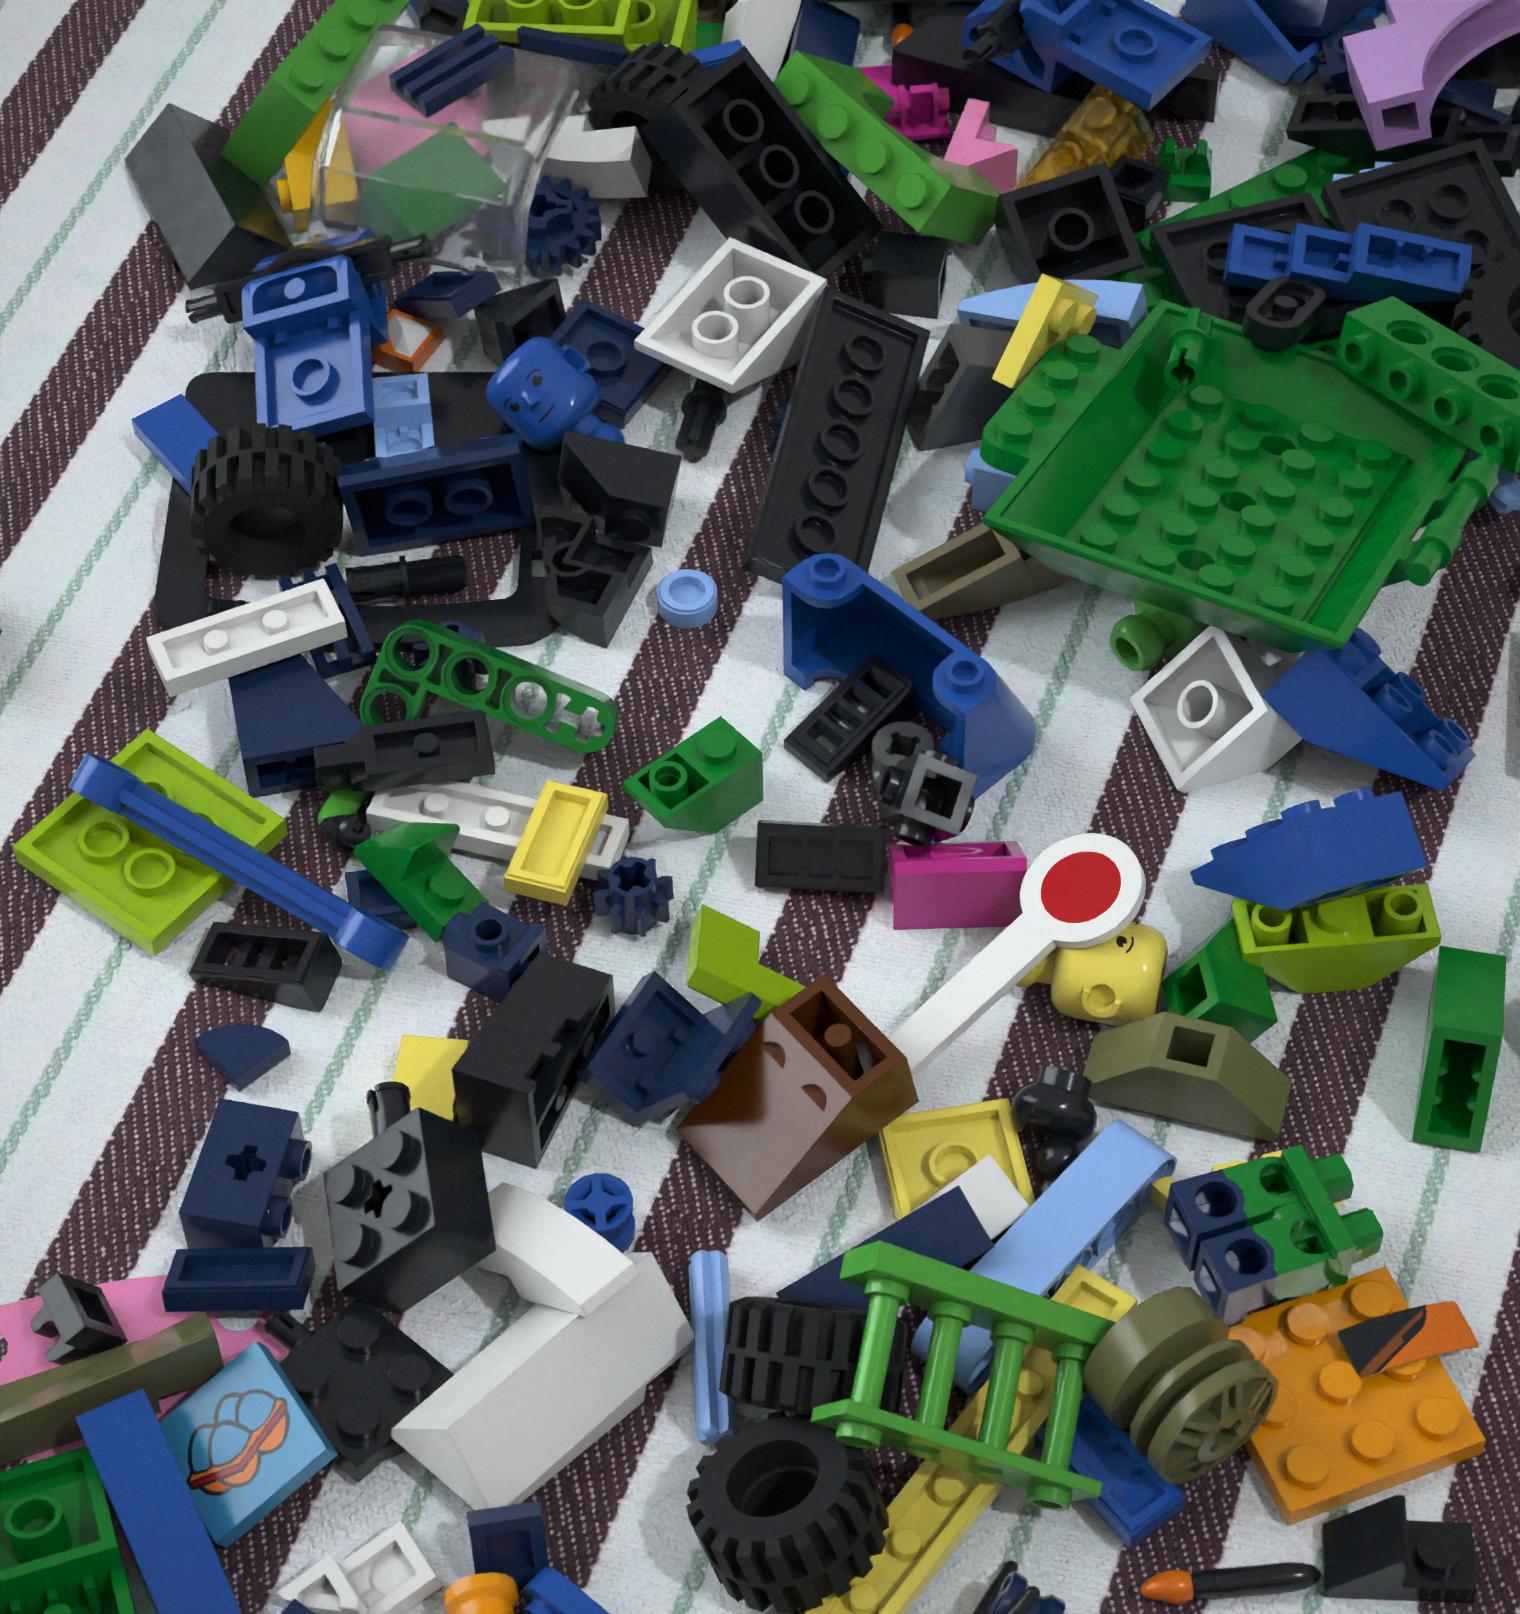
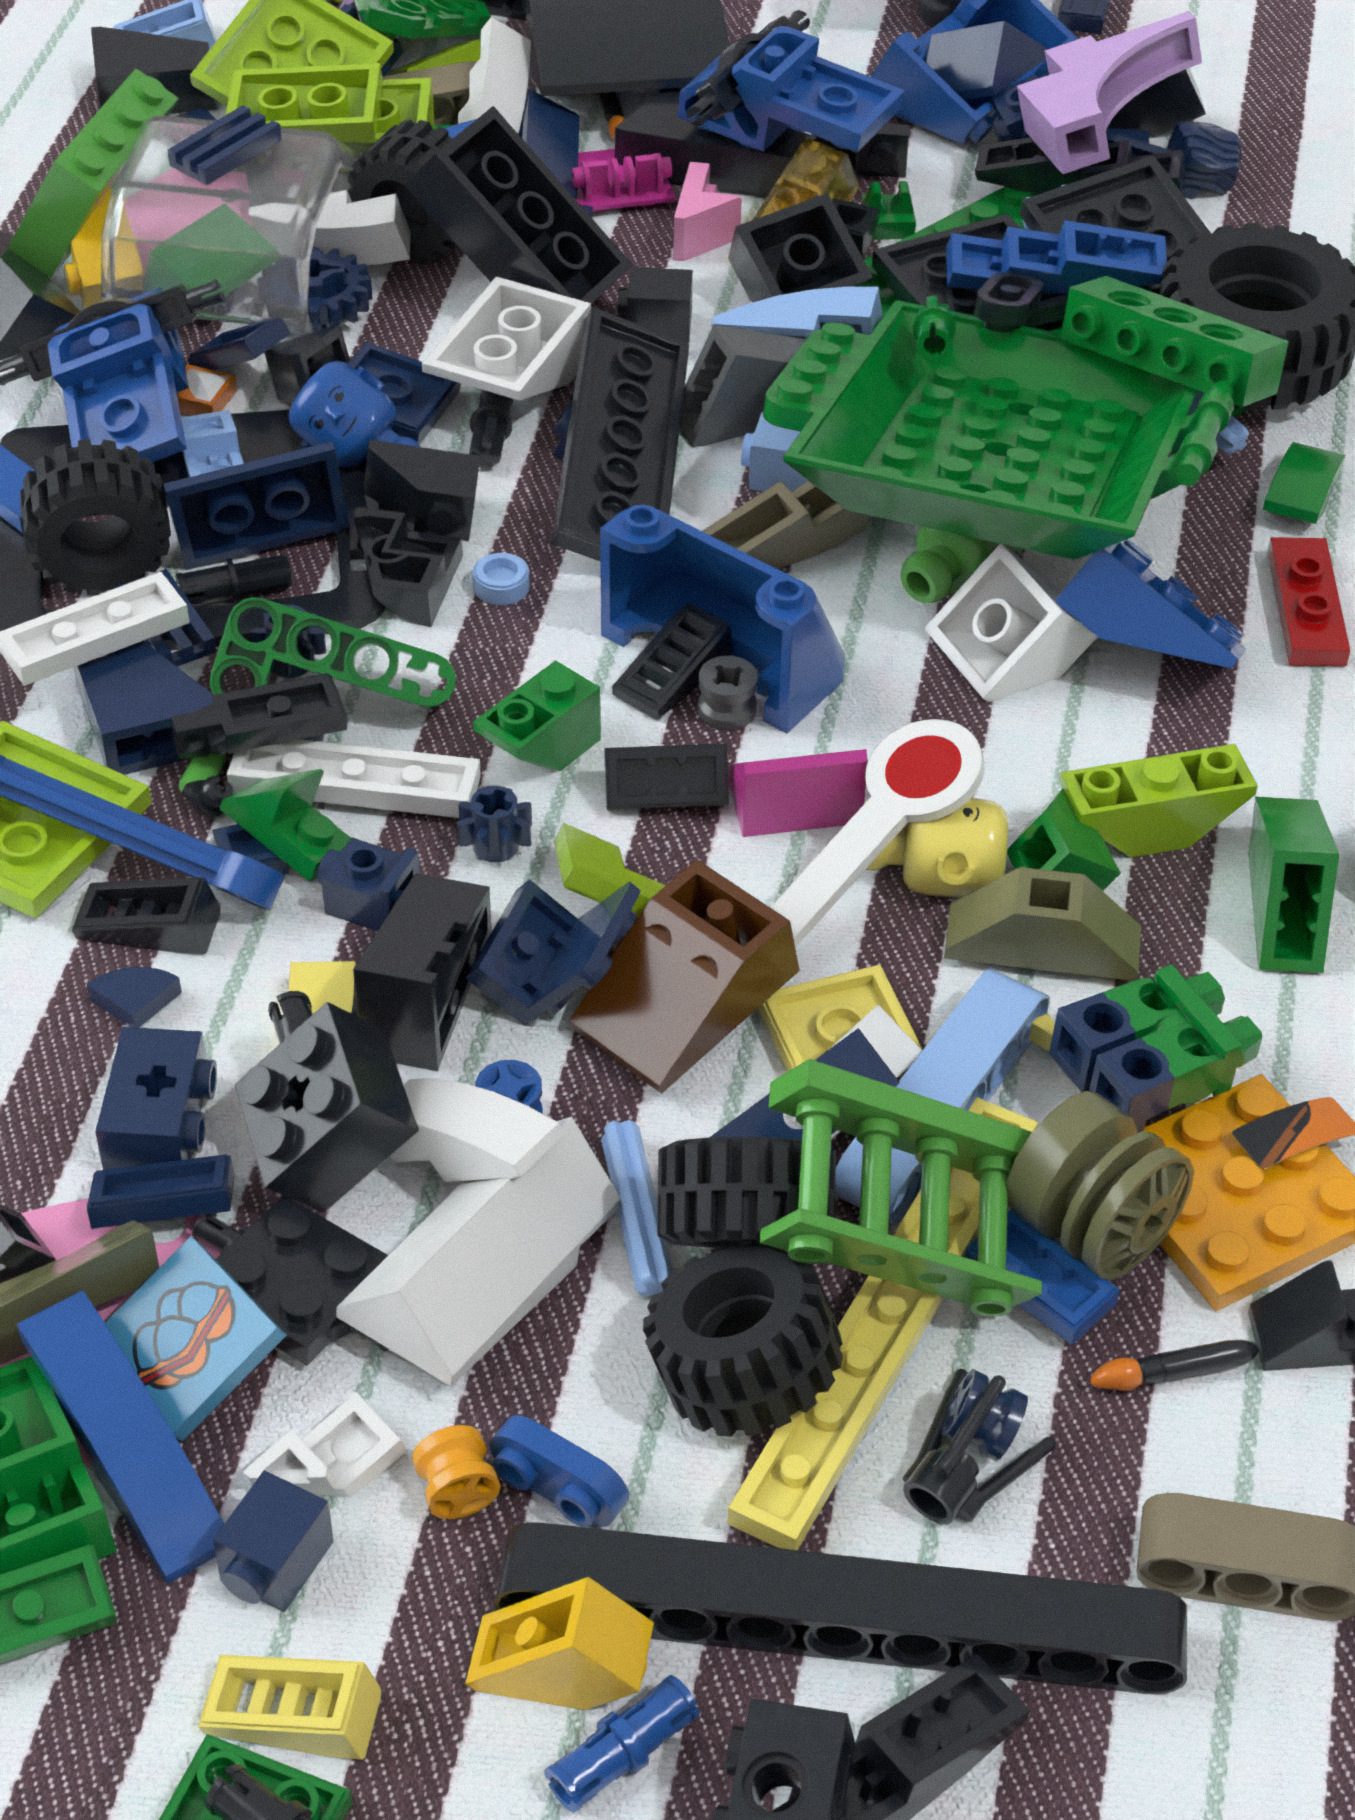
camera: 10 degrees left, 5 degrees down
(509, 1541) = (470, 1396): dark blue tile -> none
(556, 842) = (415, 782): light yellow tile -> none
(572, 46) = (355, 136): dark blue tile -> none
(847, 119) = (630, 200): bright green arch -> none
(946, 795) = (760, 714): black brick -> none
(1051, 315) = (806, 308): light yellow wing -> none
(1057, 1108) = (932, 969): black animal -> none
(1318, 852) = (1136, 718): blue slope -> none

